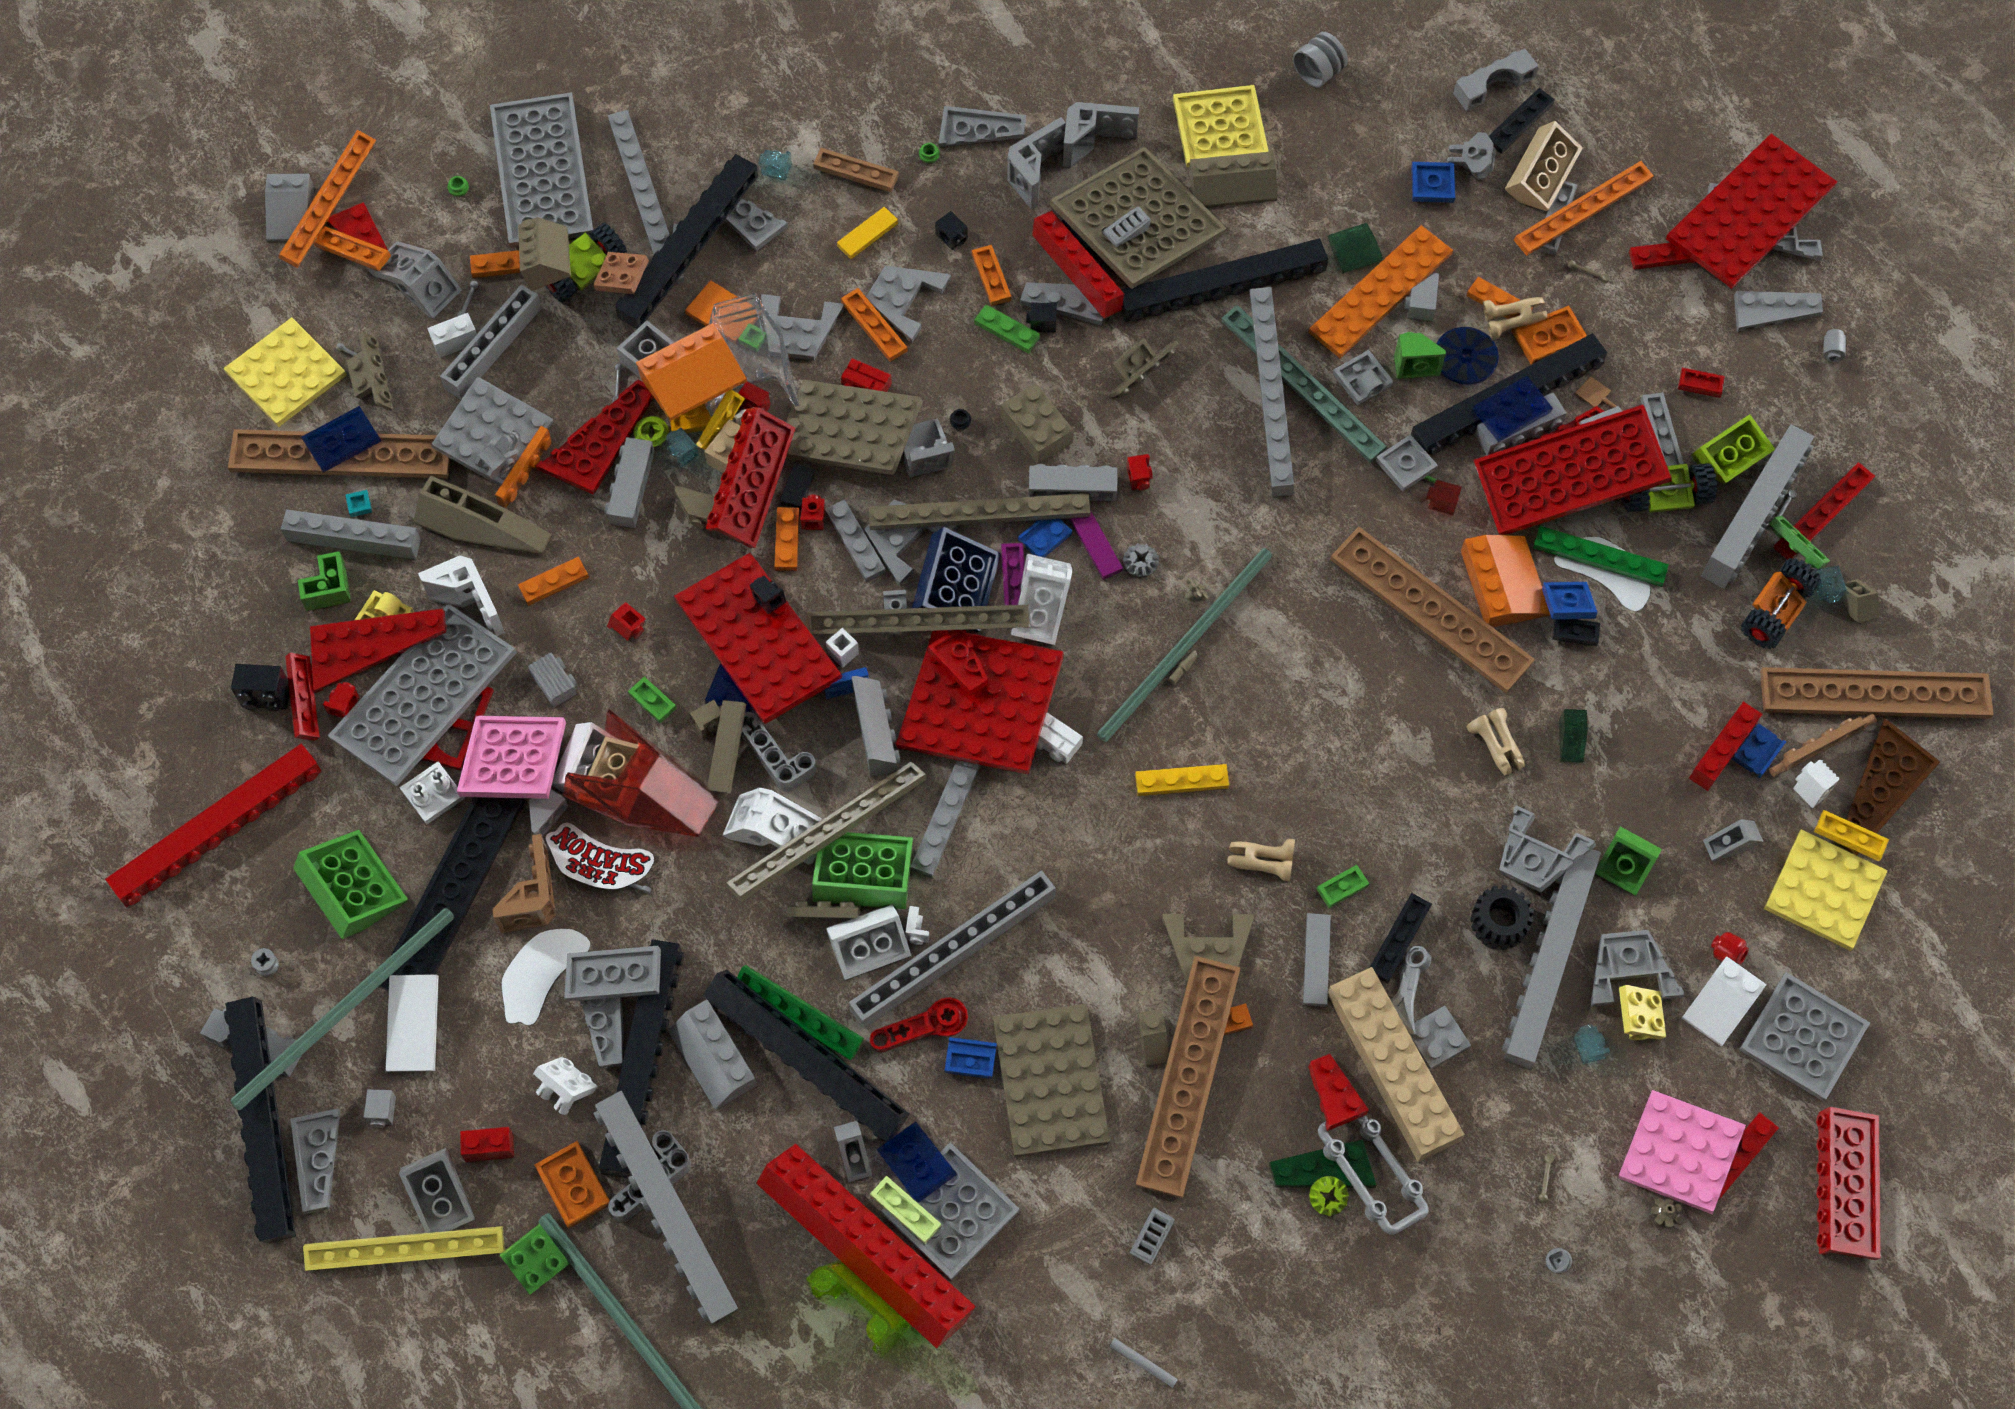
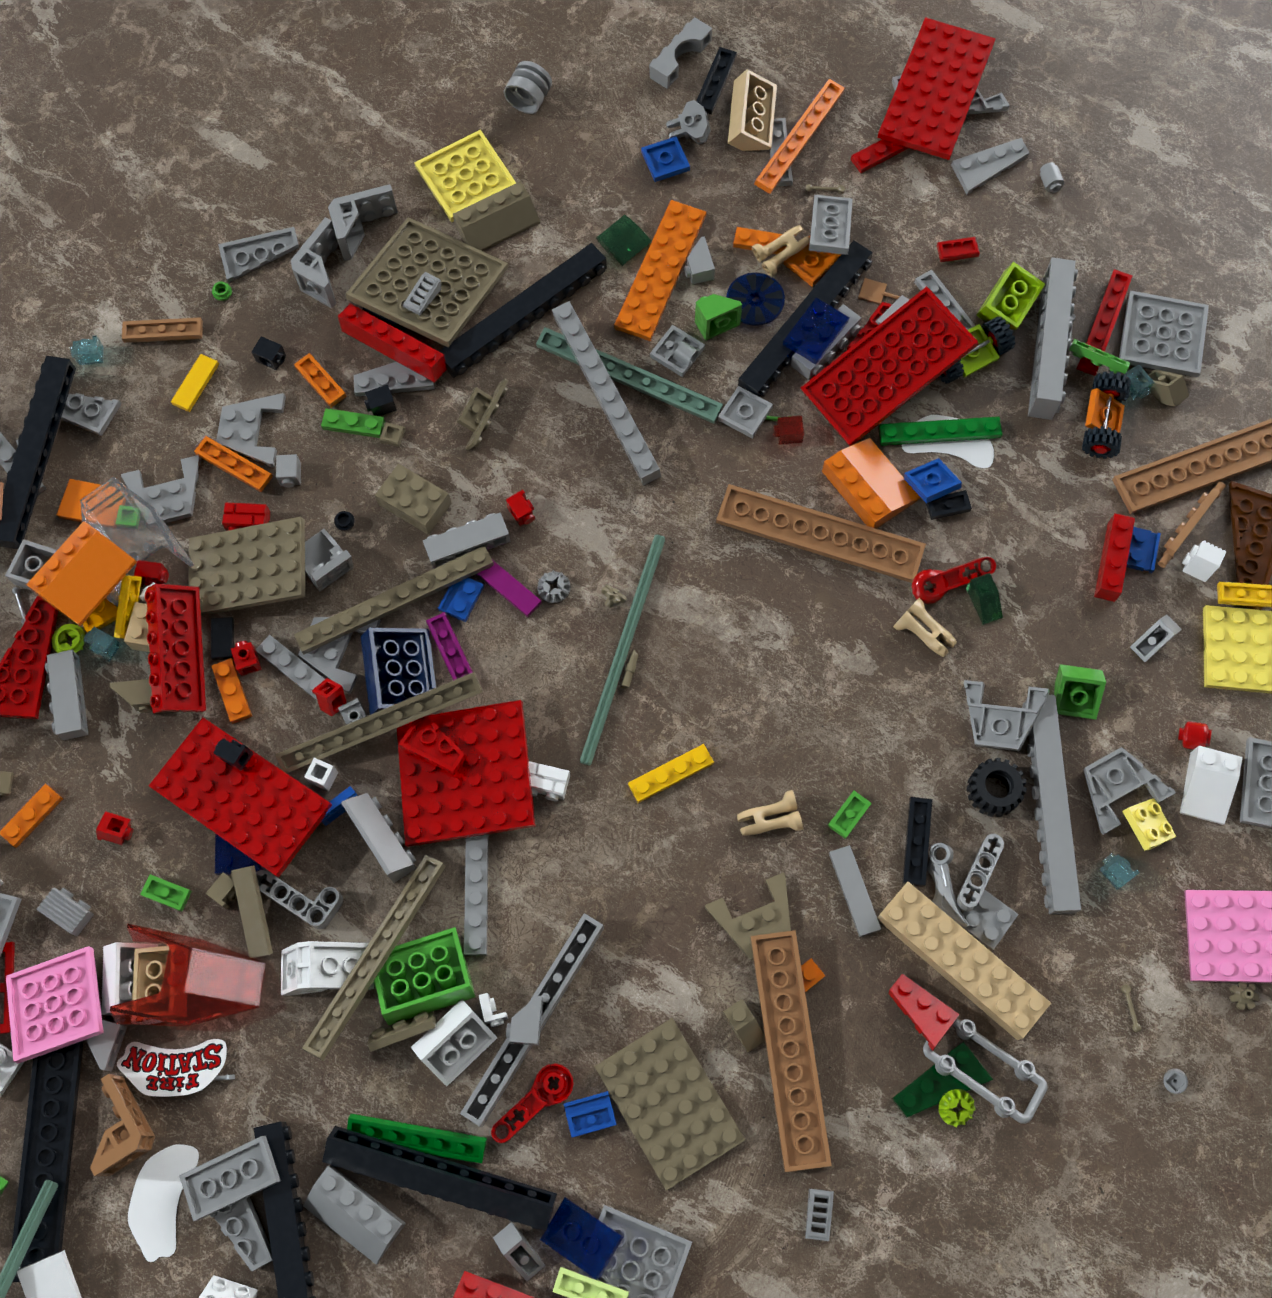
camera: 20 degrees left, 5 degrees up
(879, 578) = (329, 696): none -> red brick
(925, 350) = (288, 470): none -> light grey brick
(945, 945) = (526, 1024): none -> light grey slope
(1041, 354) = (392, 434): none -> dark tan tile
(1045, 591) = (482, 651): white bracket -> none
(1449, 989) = (981, 872): none -> light grey beam
(1539, 702) = (947, 580): none -> red beam
(1576, 308) = (830, 224): none -> light grey plate
(1882, 546) = (1164, 333): none -> light grey plate

